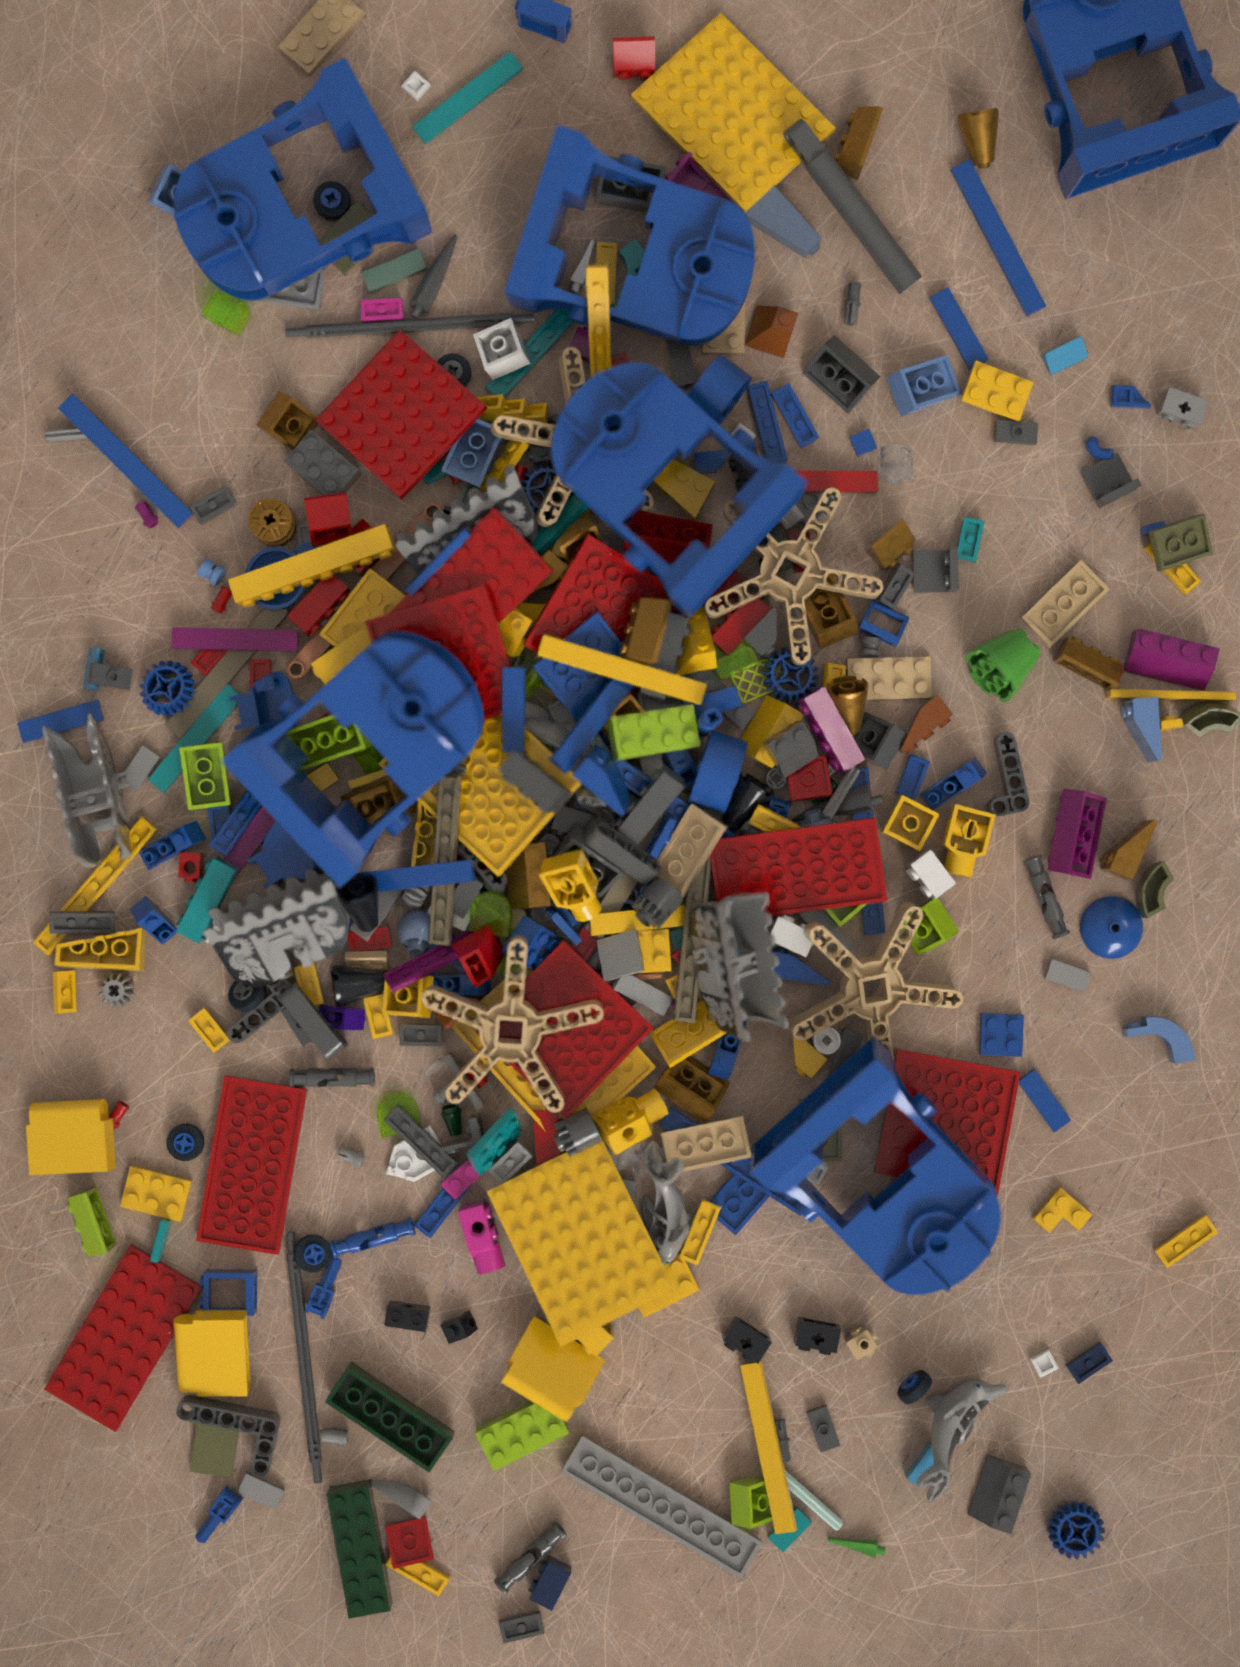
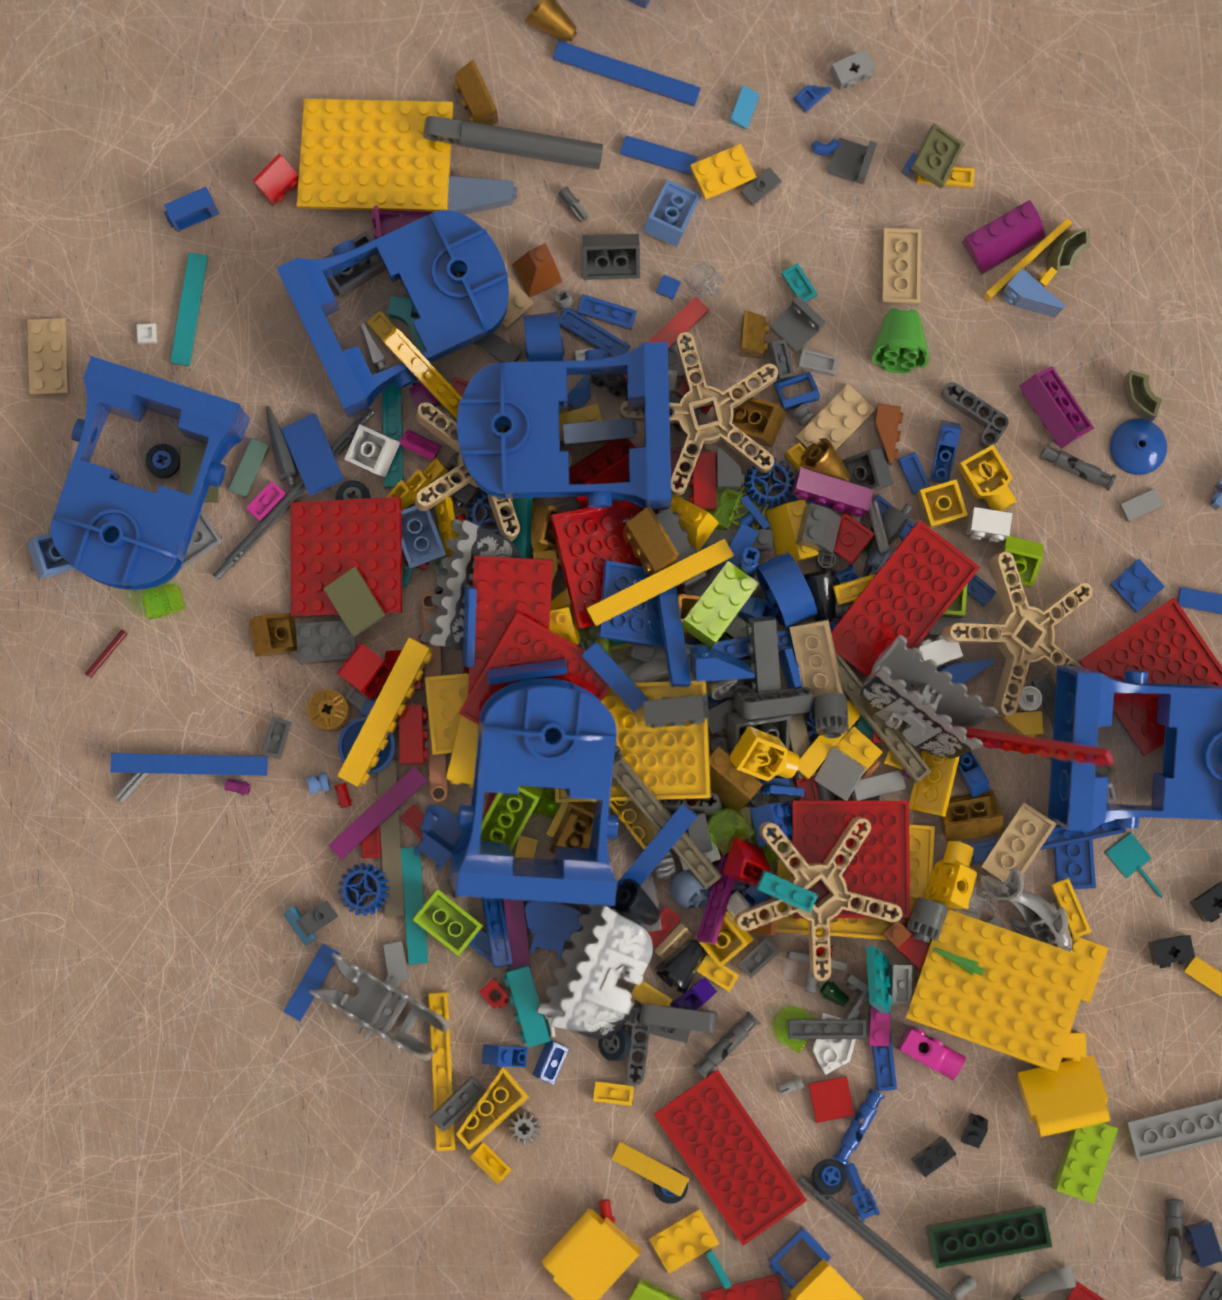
camera: 45 degrees left, 5 degrees down
(148, 311) = (106, 653): none -> dark red bar
(171, 844) = (468, 992): blue slope -> none
(181, 1114) = (650, 1168): none -> yellow tile
(185, 959) = (550, 1061): none -> blue slope
(371, 455) = (354, 601): none -> olive tile
(372, 1196) = (831, 1099): none -> red tile
(443, 978) = (736, 904): none -> white tile
(447, 639) = (527, 671): none -> blue tile
(453, 307) = (312, 454): none -> blue tile
(485, 1006) = (787, 891): none -> teal tile
(542, 1121) = (896, 934): none -> dark orange brick
(545, 381) = (420, 445): none -> dark pink plate
(573, 1198) = (968, 965): none -> bright green piece
(691, 504) = (599, 431): none -> sand blue slope
(752, 688) = (753, 514): none -> blue tile
(769, 377) = (566, 303): none -> light grey bush
(786, 1236) = (1129, 857): none -> teal piece
(792, 1088) = (1041, 747): none -> red plate
(923, 616) = (818, 362): none -> light grey tile
(1089, 663) = (955, 289): pearl gold slope -> none
(1127, 854) = (1102, 388): pearl gold slope -> none

